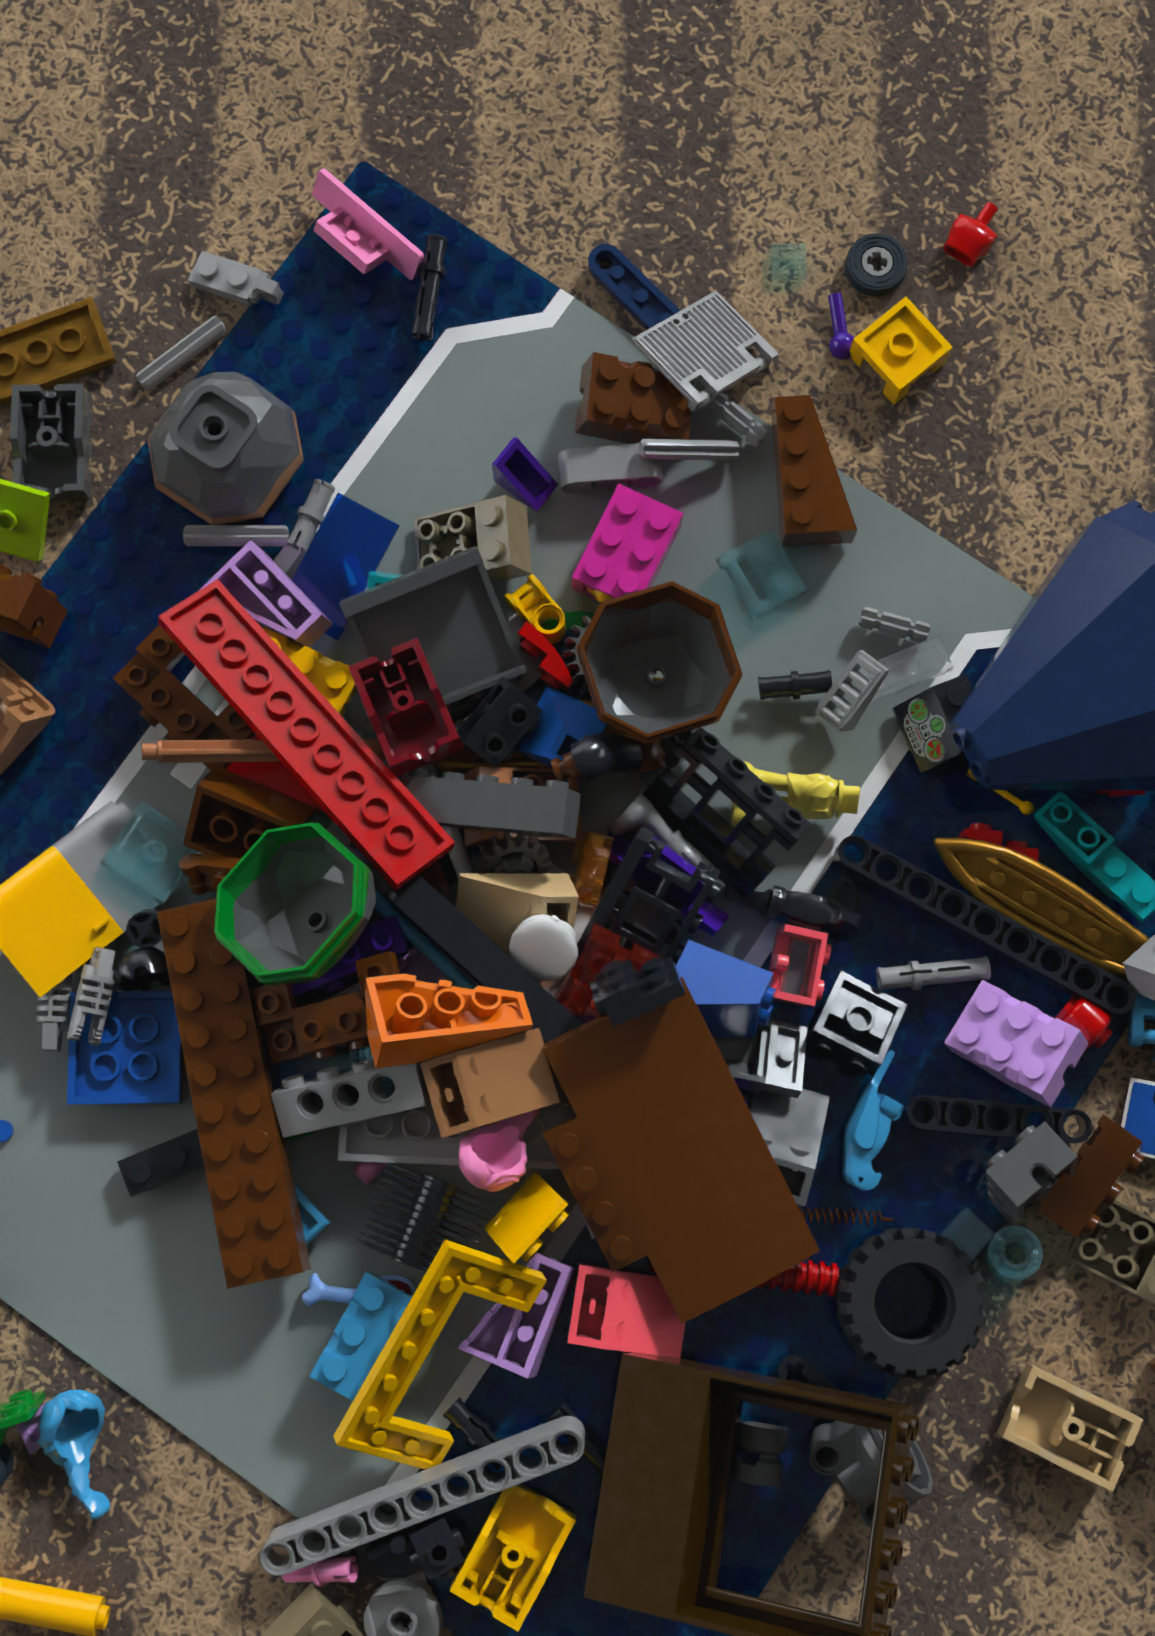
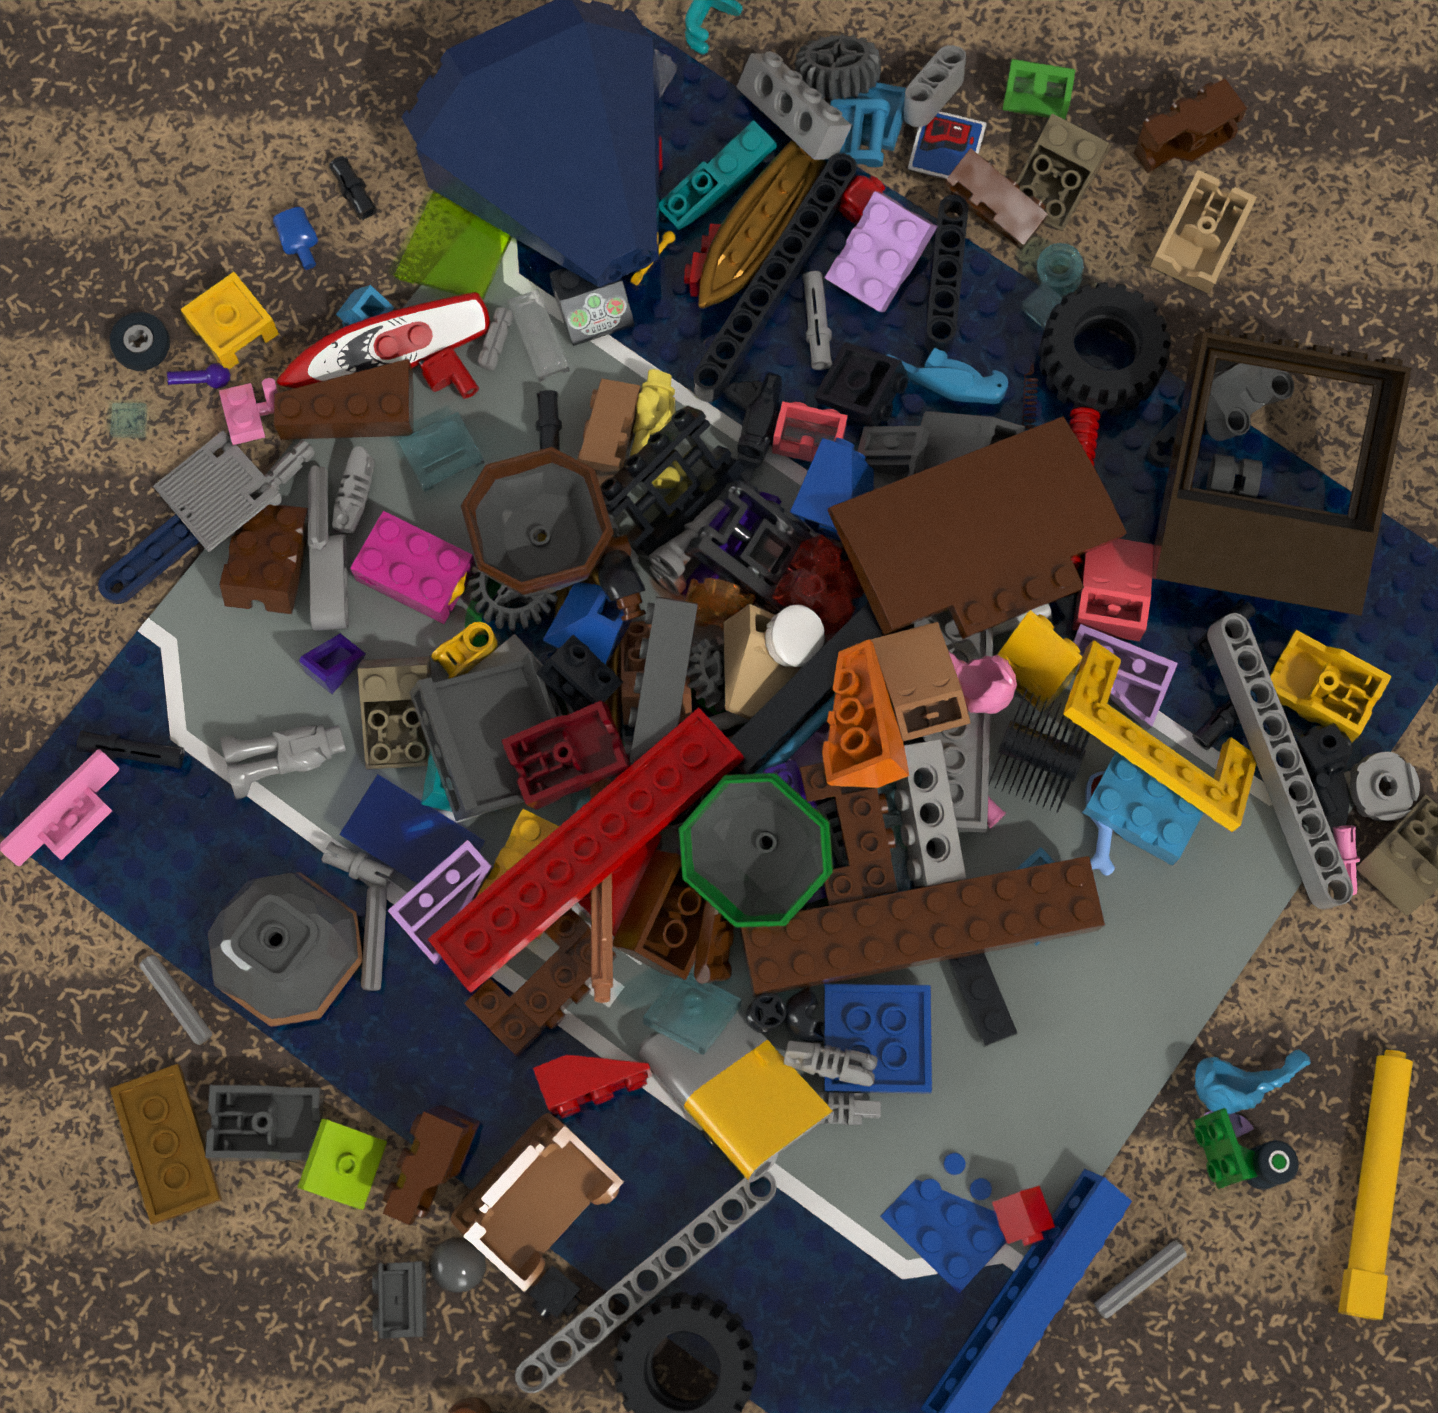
camera: 90 degrees left, 5 degrees down
(80, 745) = (582, 1079): none -> red slope
(233, 280) = (103, 945): light grey hinge -> none
(429, 446) = (296, 749): none -> light grey piece
(552, 667) = (521, 635): red slope -> none
(628, 993) = (841, 543): black plate -> none
(712, 486) = (353, 491): none -> light grey hinge
(787, 745) = (610, 427): none -> medium nougat wedge
(798, 372) = (244, 413): none -> bright pink plate
(834, 697) = (580, 391): light grey slope -> none
(856, 577) = (447, 369): none -> red piece
(882, 514) = (398, 335): none -> piece
(916, 486) = (362, 305): none -> dark azure brick
(970, 237) = (120, 257): red piece -> none
(994, 575) = (452, 250): none -> clear neon green piece
(1007, 414) = (296, 234): none -> blue piece
(1028, 1170) = (999, 244): dark grey piece -> none
(1066, 468) = (352, 187): none -> black pin

